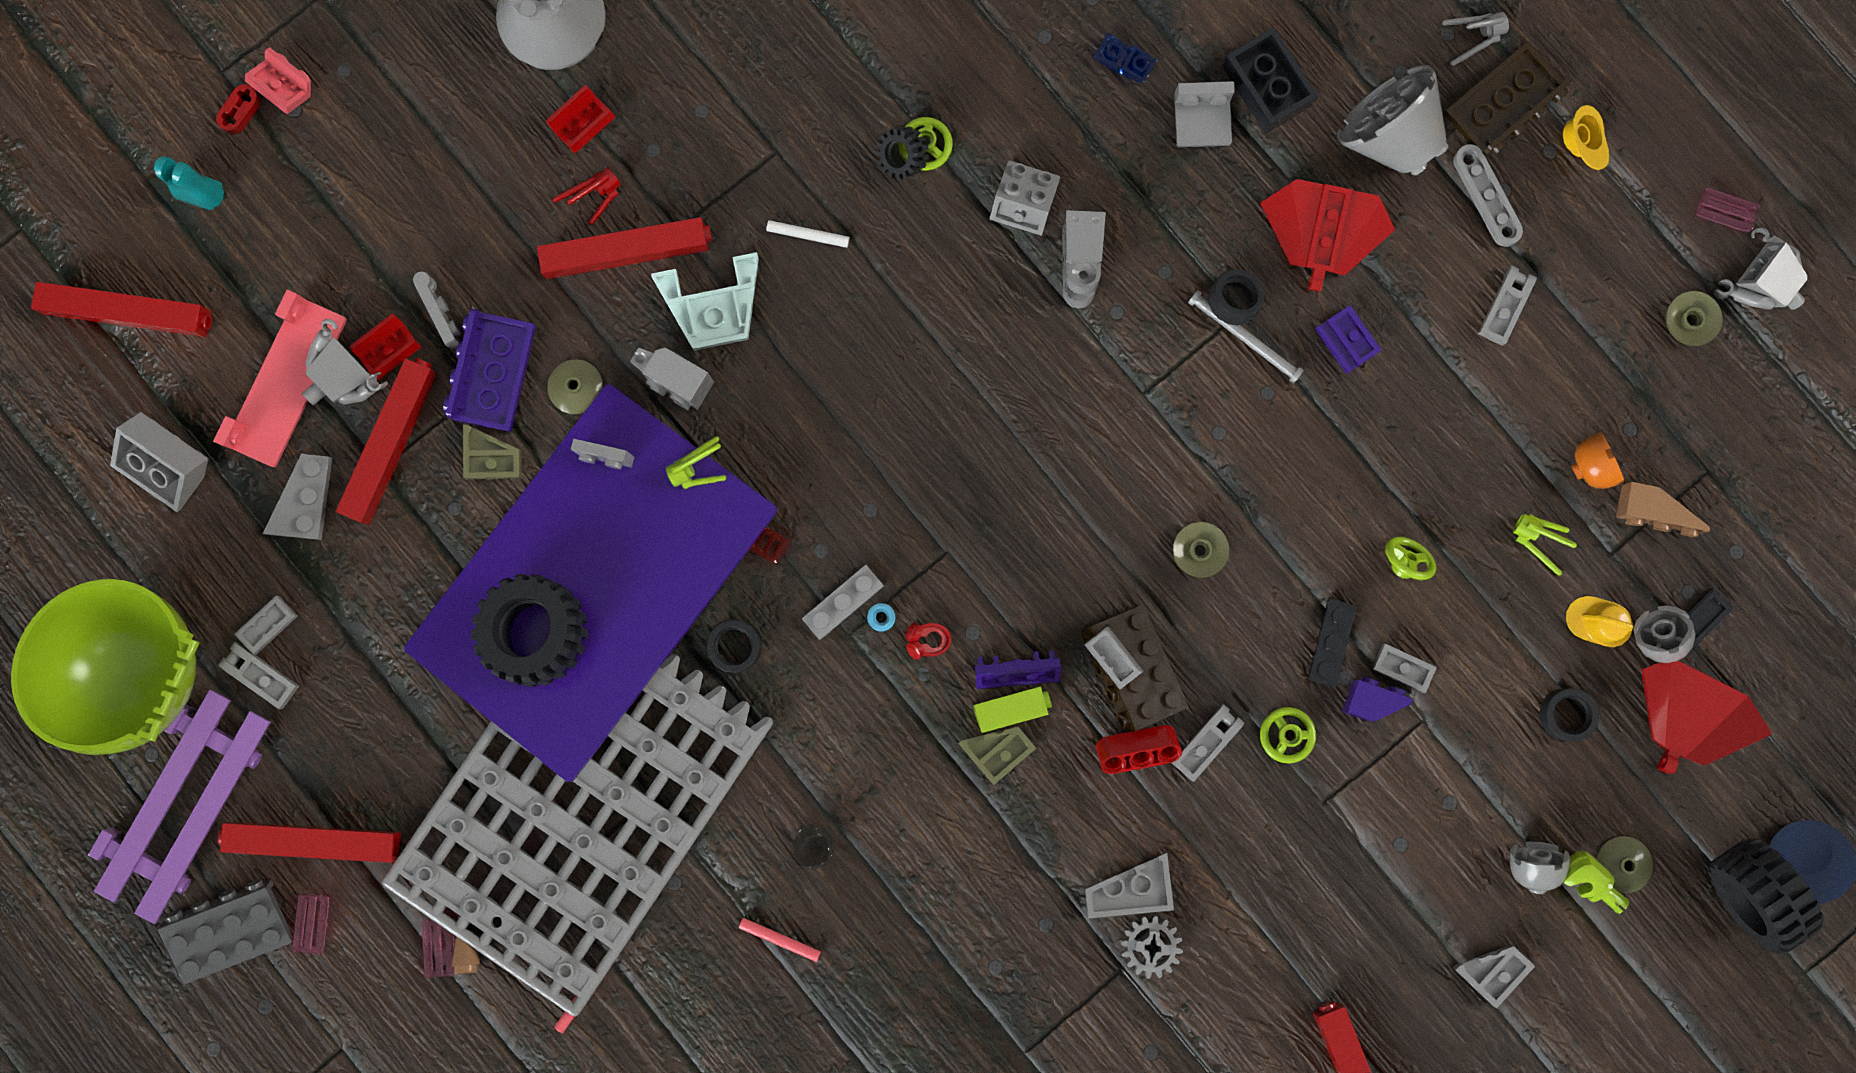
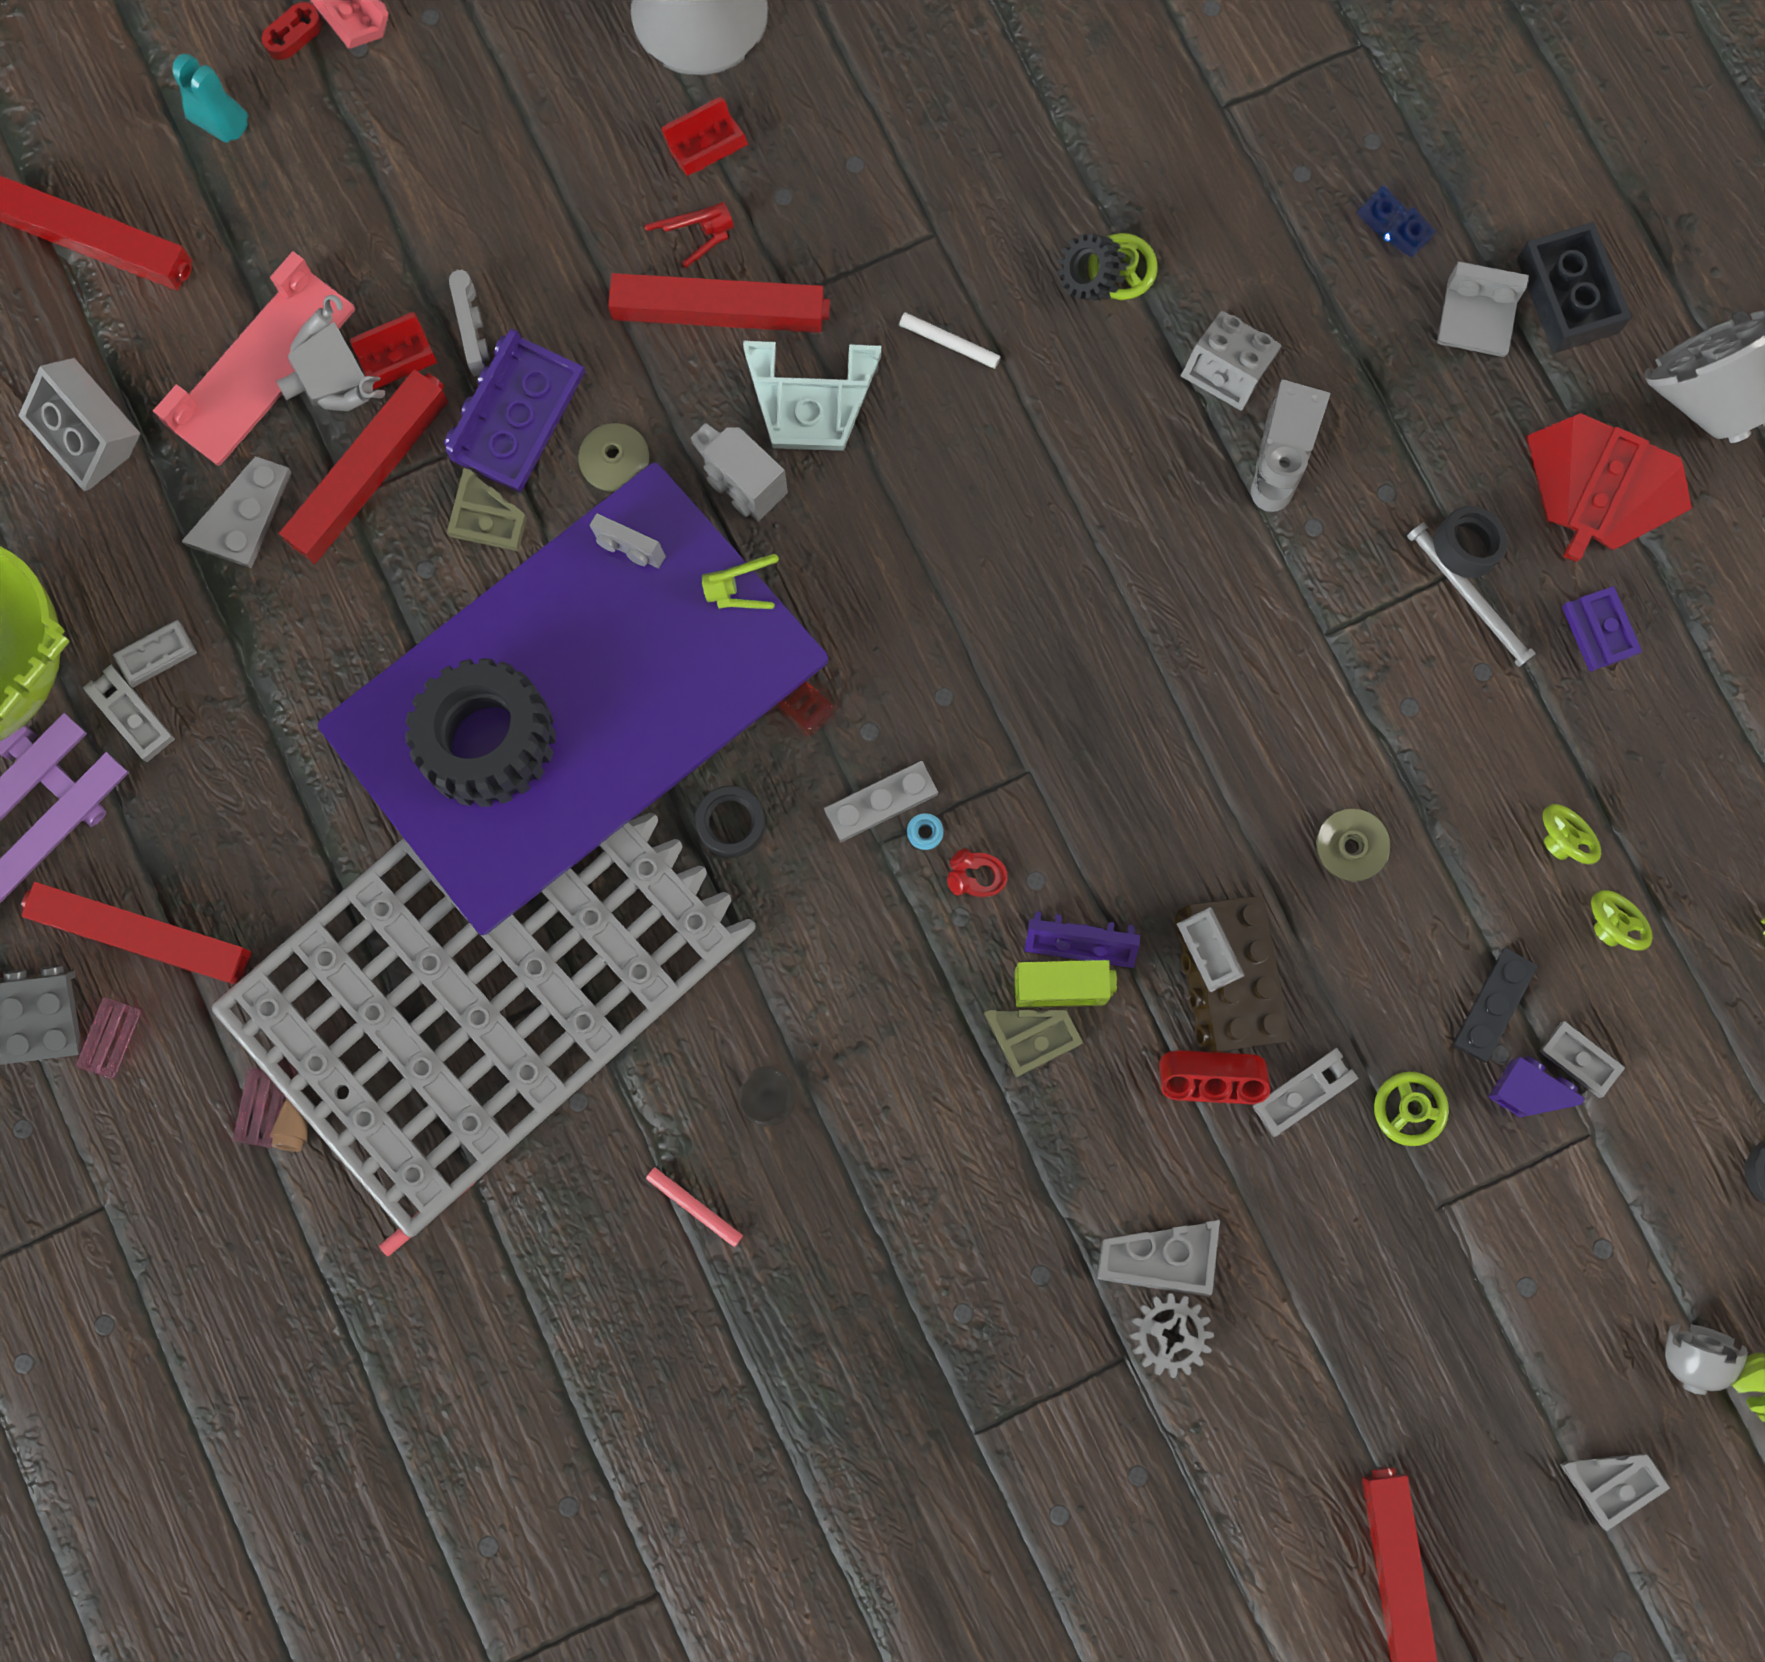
camera: 15 degrees right, 5 degrees down
(1355, 506) = (1565, 838): none -> lime piece

